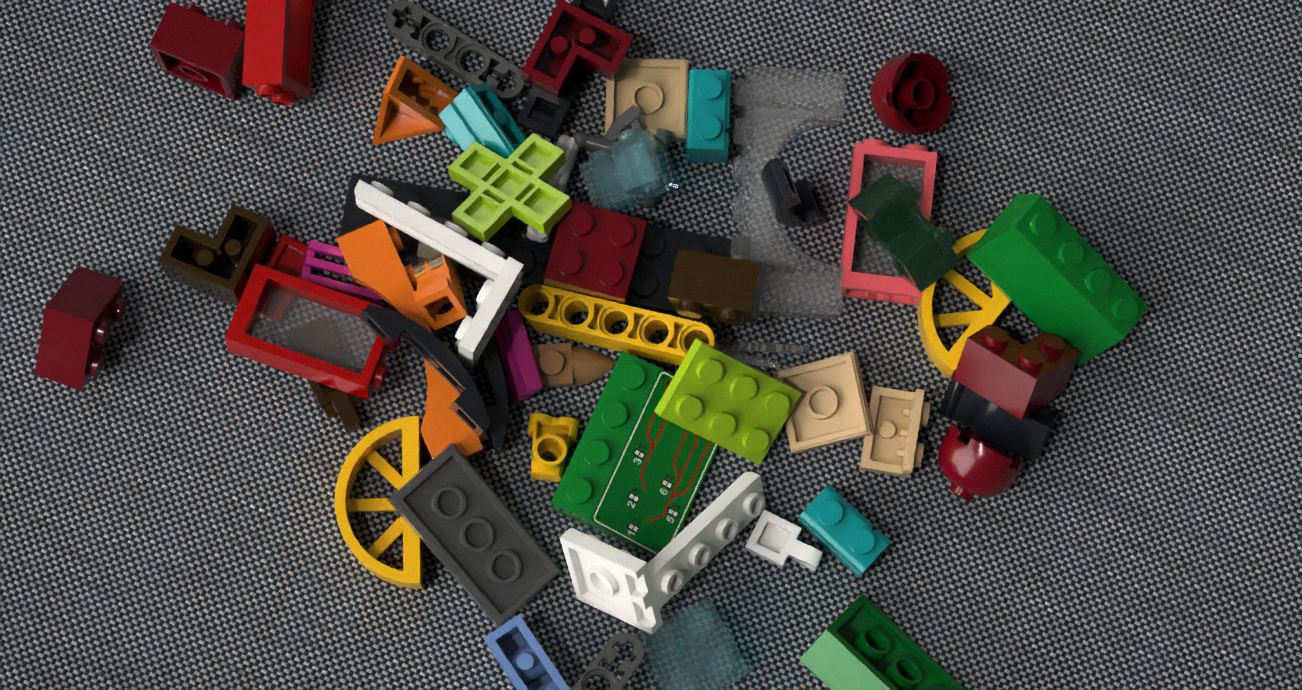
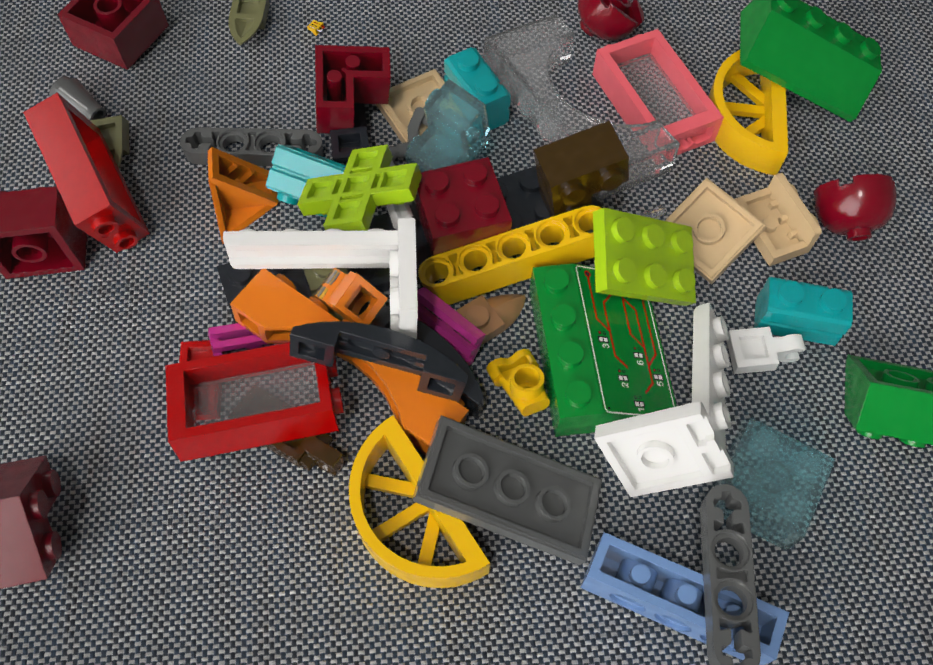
camera: 30 degrees left, 15 degrees down
(223, 263) = (132, 390): dark brown brick -> none
(791, 202) = (580, 68): black slope -> none
(915, 244) = (699, 80): clear green brick -> none
(996, 424) = (813, 170): black piece -> none
(1015, 374) = (829, 127): dark red brick -> none

